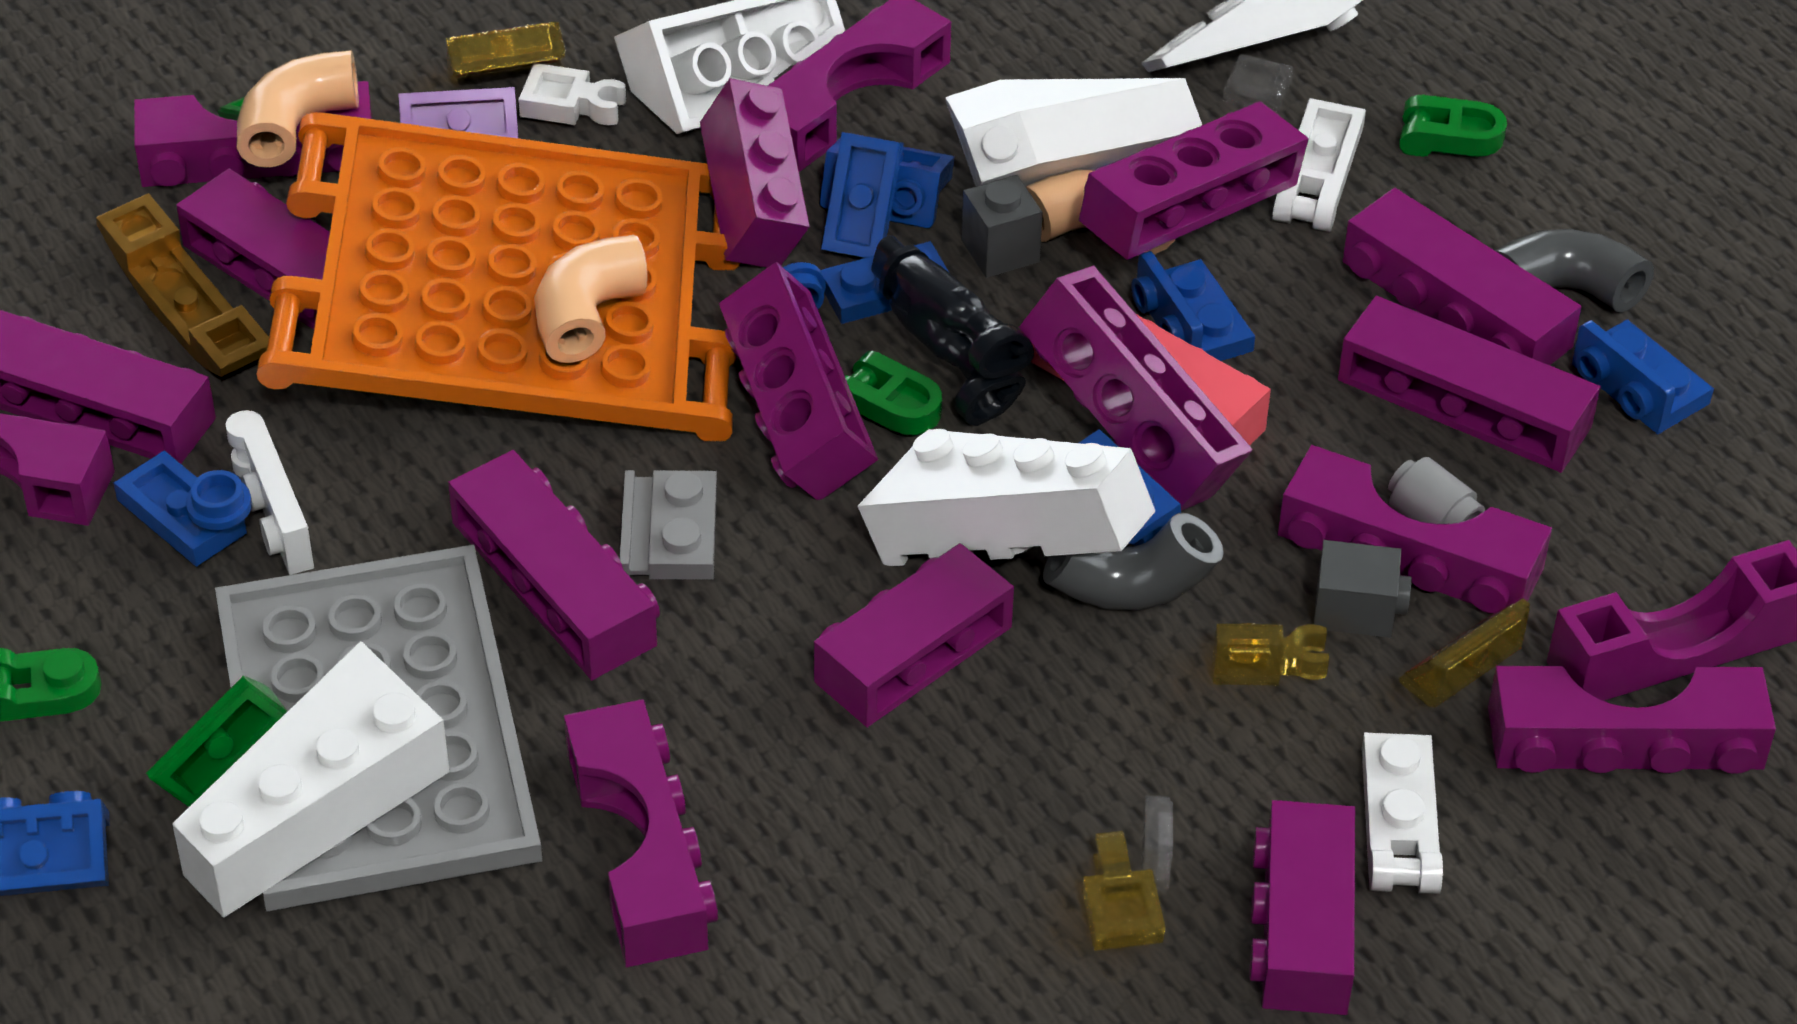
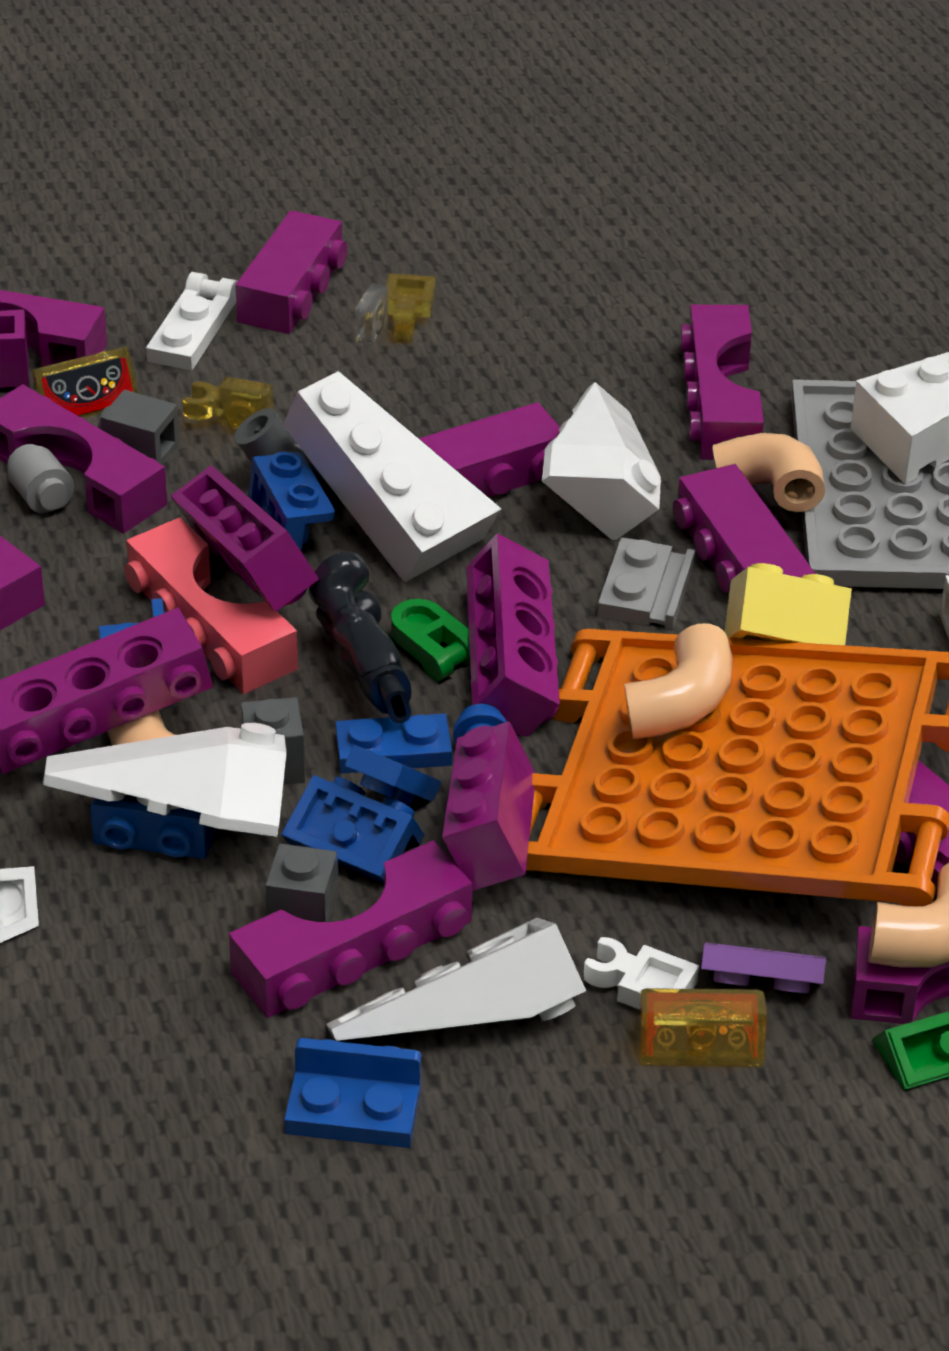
camera: 165 degrees left, 5 degrees down
(487, 421) = (786, 607): none -> light yellow brick
(533, 662) = (776, 461): none -> light nougat cylinder
(753, 624) = (603, 465): none -> white wedge
(907, 94) = (303, 883): none -> dark grey brick

